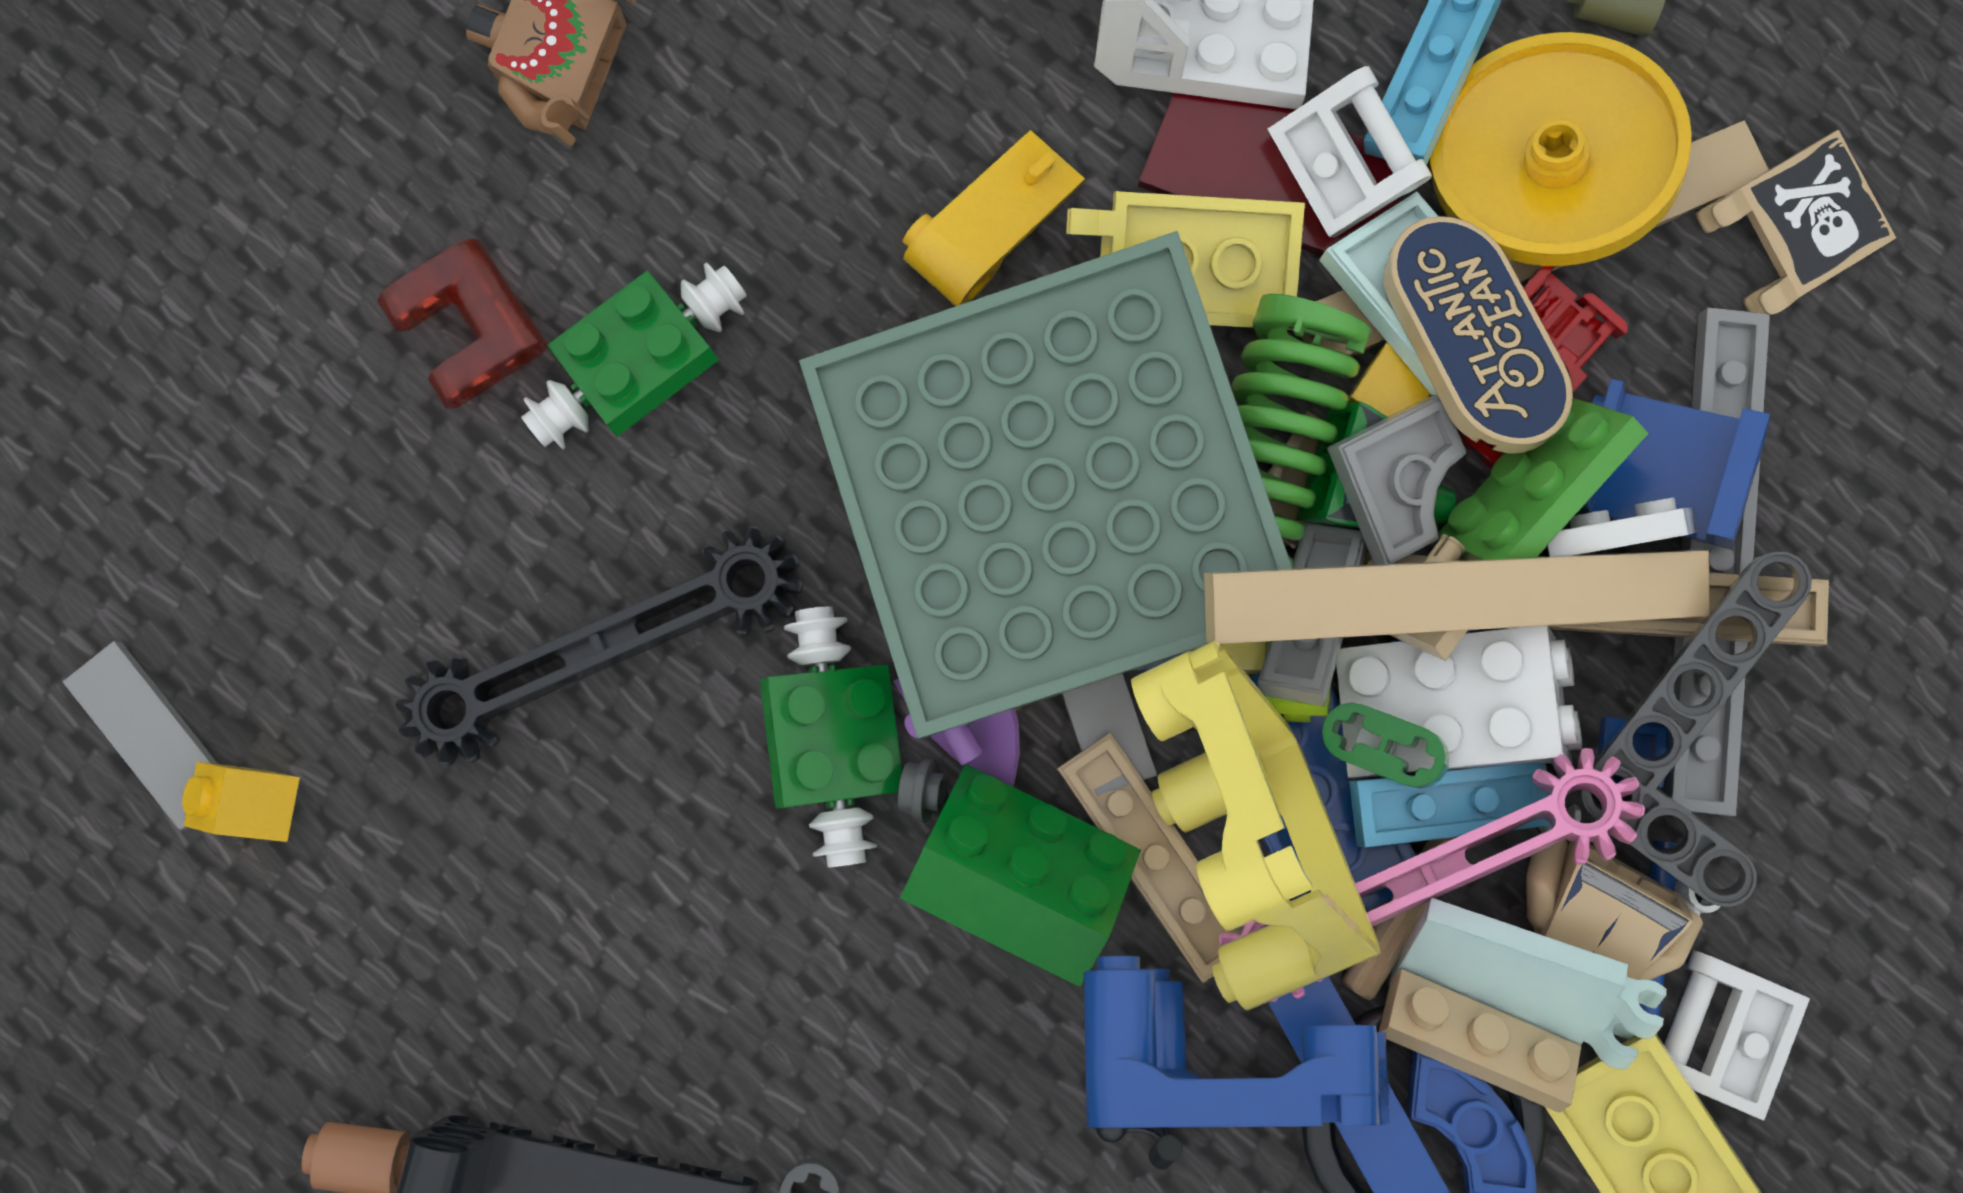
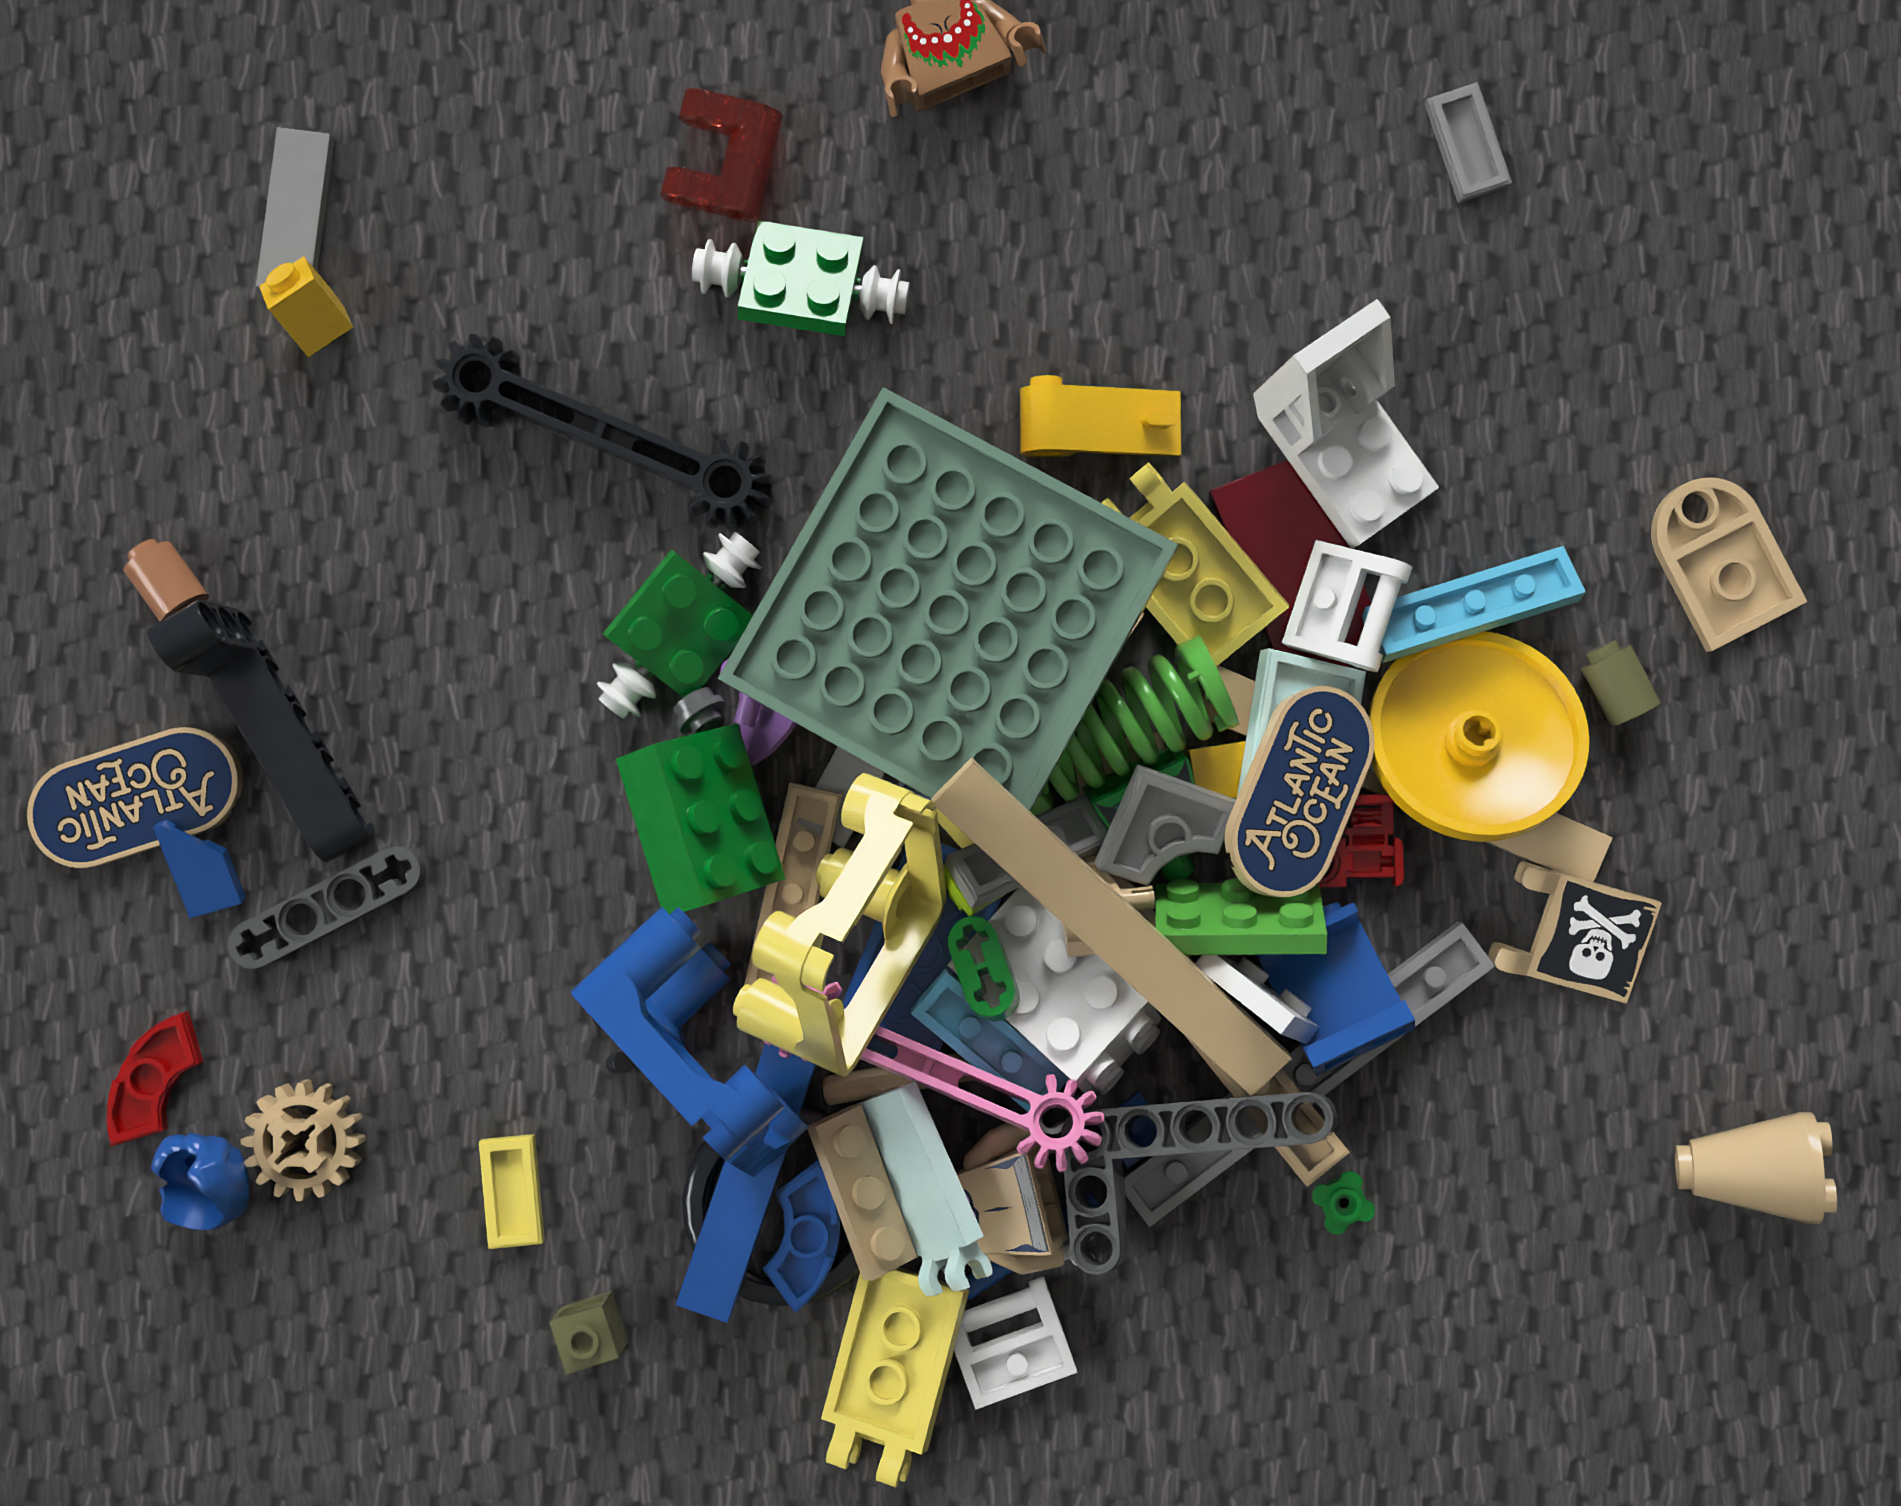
camera: 50 degrees right, 5 degrees up
(1842, 634) = (1328, 1197): none -> green plate

